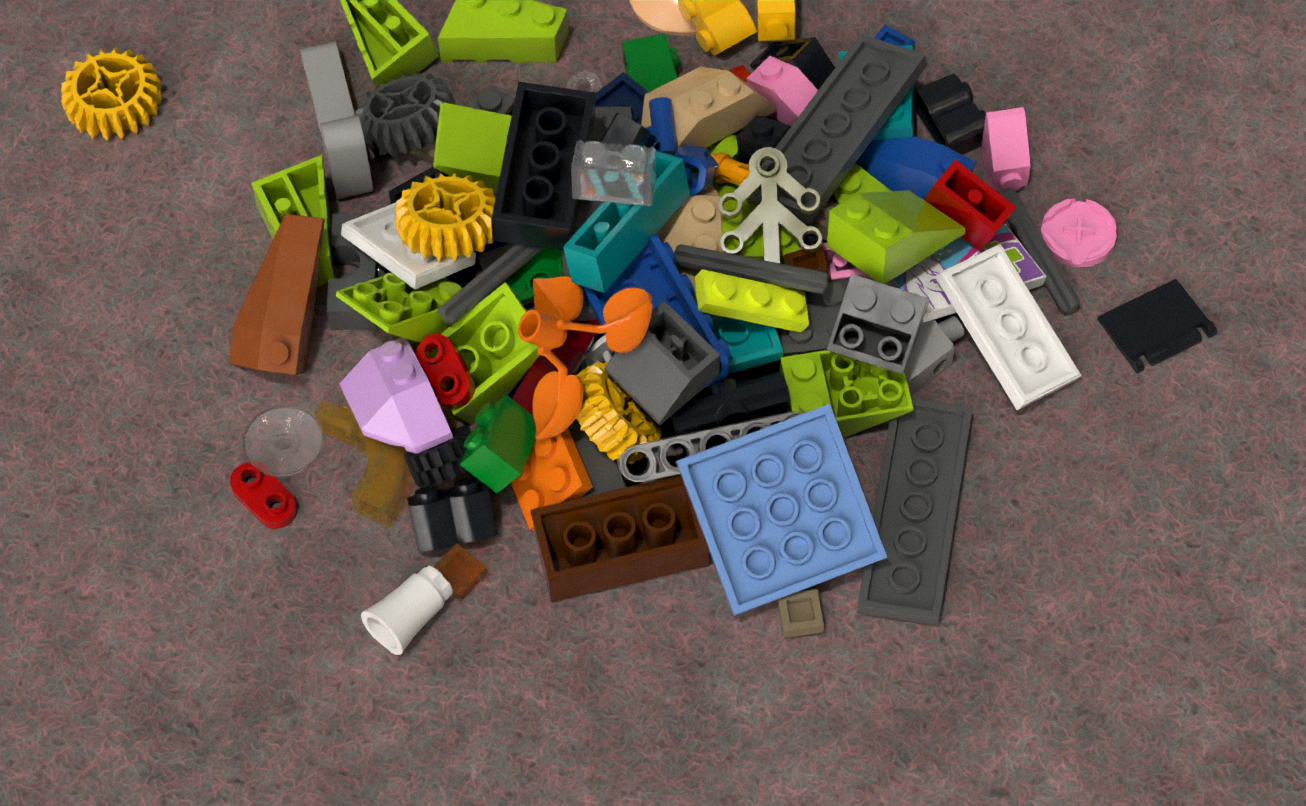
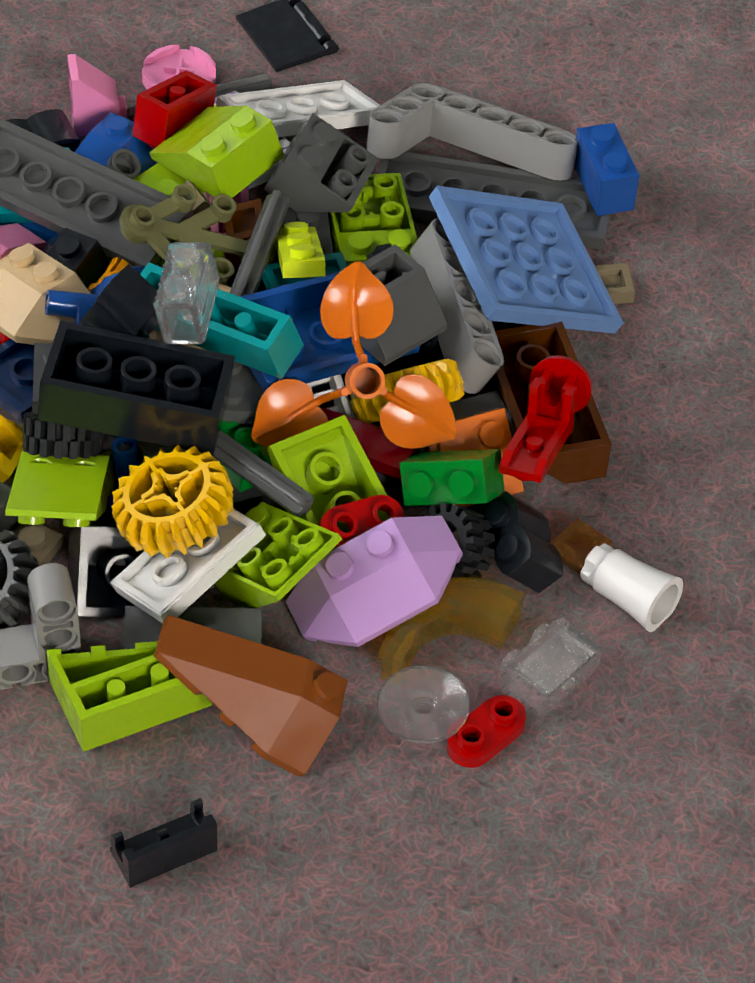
camera: 95 degrees left, 10 degrees down
(161, 262) = (165, 845): none -> black hinge
(321, 540) = (549, 666): none -> clear brick
(543, 509) = (556, 392): none -> red piece
(886, 175) = (124, 161): none -> dark grey hinge
(937, 596) = (606, 169): none -> blue brick
(1023, 453) = (472, 125): none -> light grey beam

